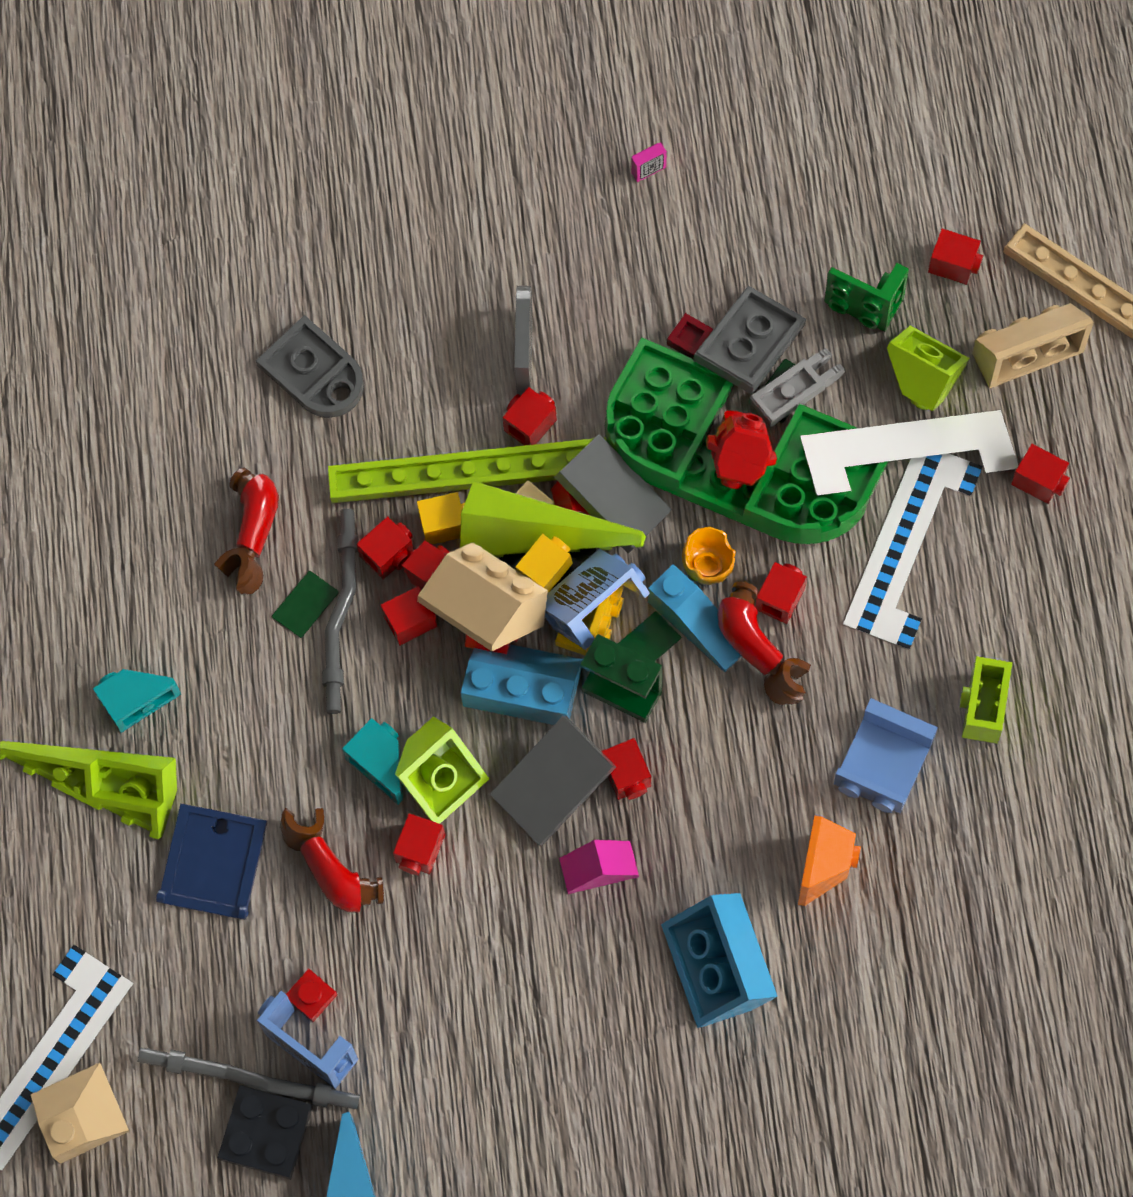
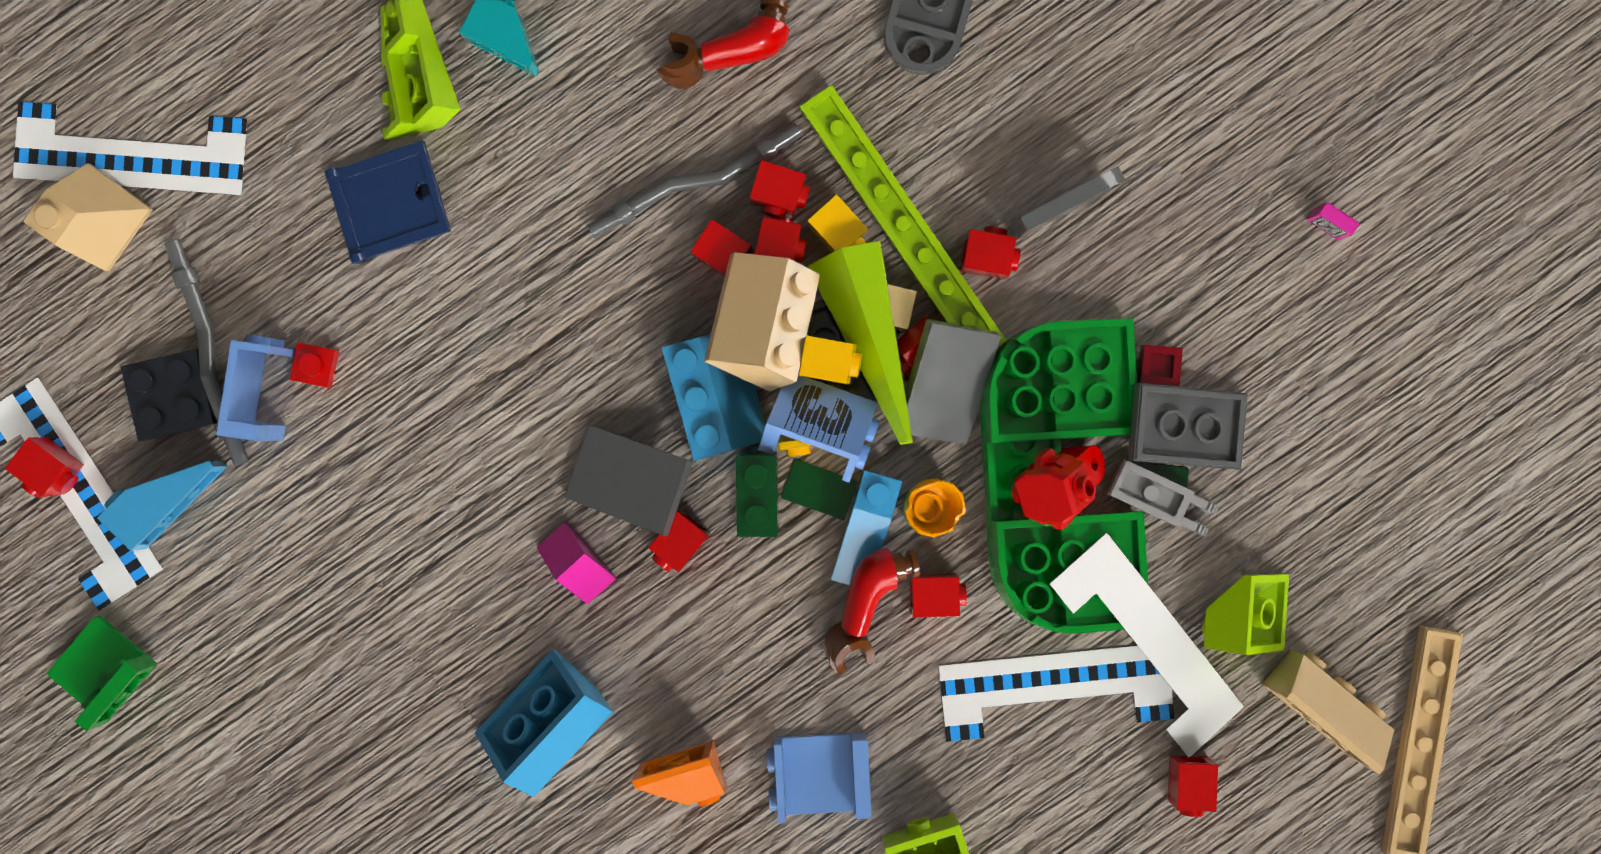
camera: 60 degrees right, 20 degrees up
(305, 604) = (686, 142): dark green sticker -> none
(337, 883) = (423, 331): red piece -> none
(376, 756) = (565, 302): teal slope -> none
(418, 845) = (501, 386): red brick -> none
(439, 770) = (582, 363): lime slope -> none
(869, 304) = (1285, 528): green bracket -> none
(955, 257) = (1388, 585): red brick -> none

